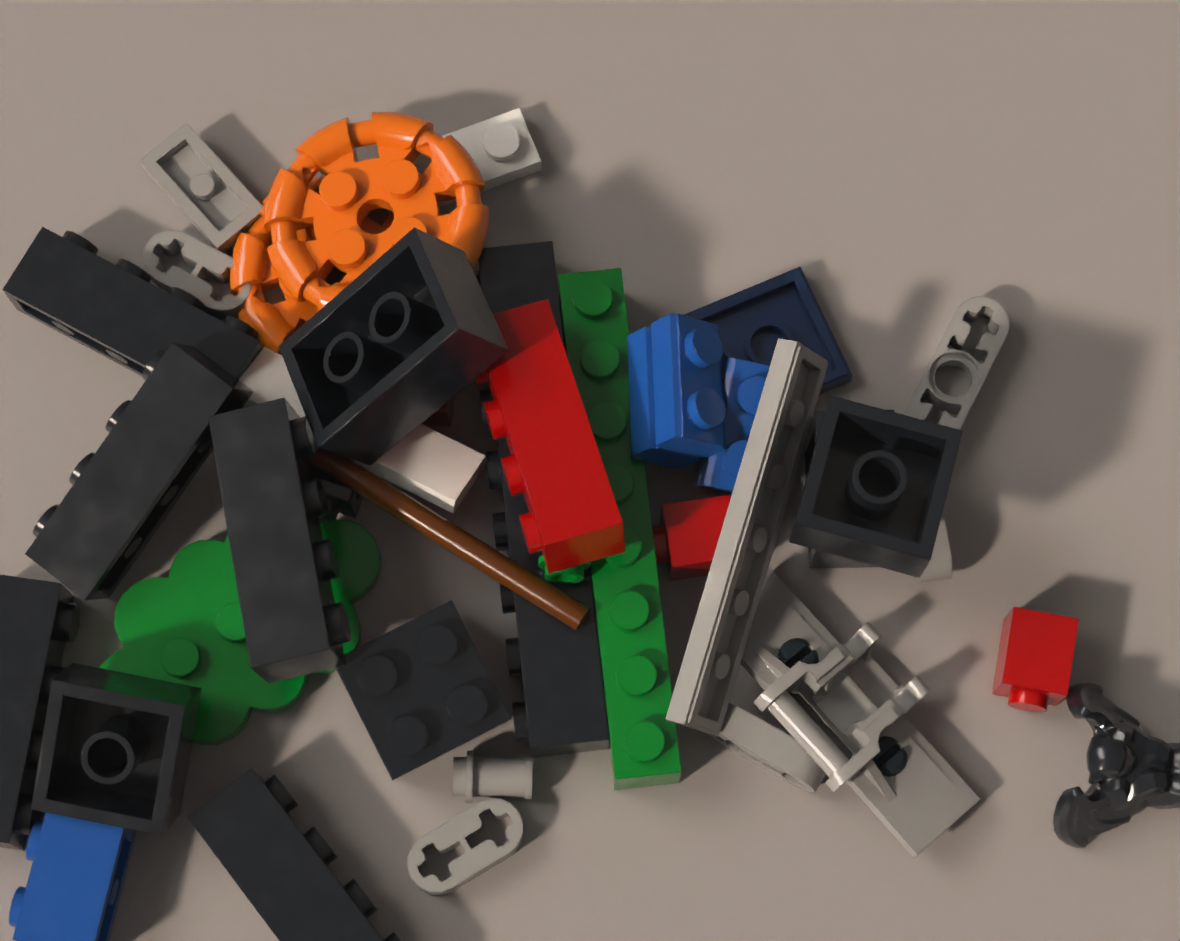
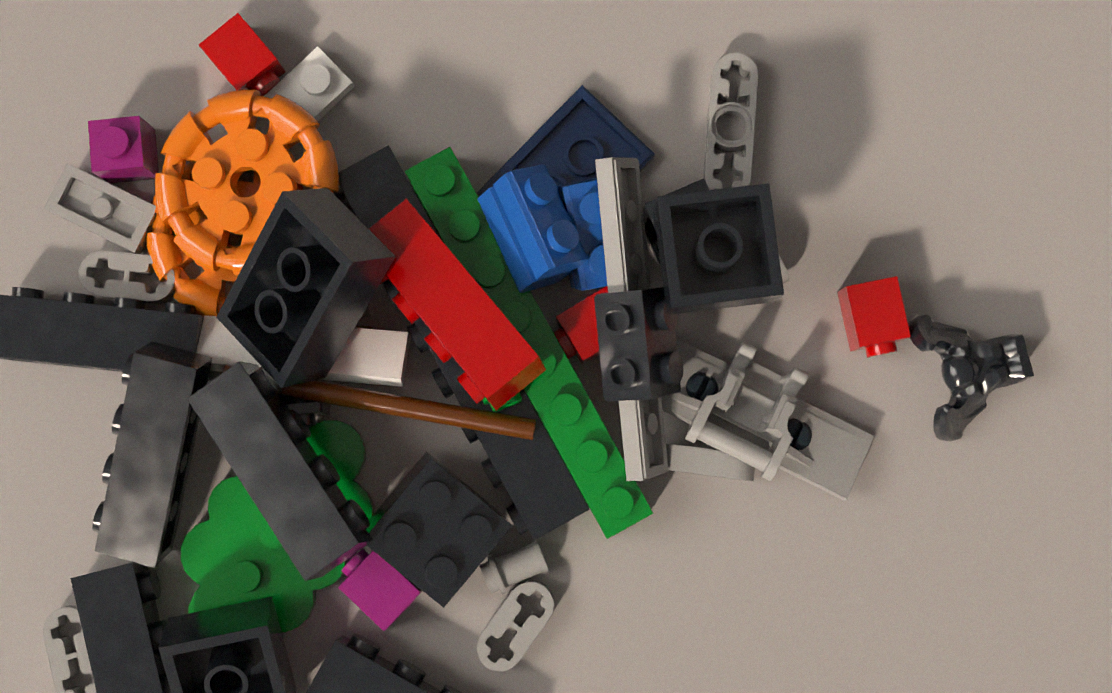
camera: 20 degrees left, 10 degrees up
(255, 132) = (123, 149): none -> magenta brick
(328, 733) = (377, 588): none -> magenta brick
(431, 84) = (242, 57): none -> red brick
(742, 566) = (637, 345): none -> black bracket

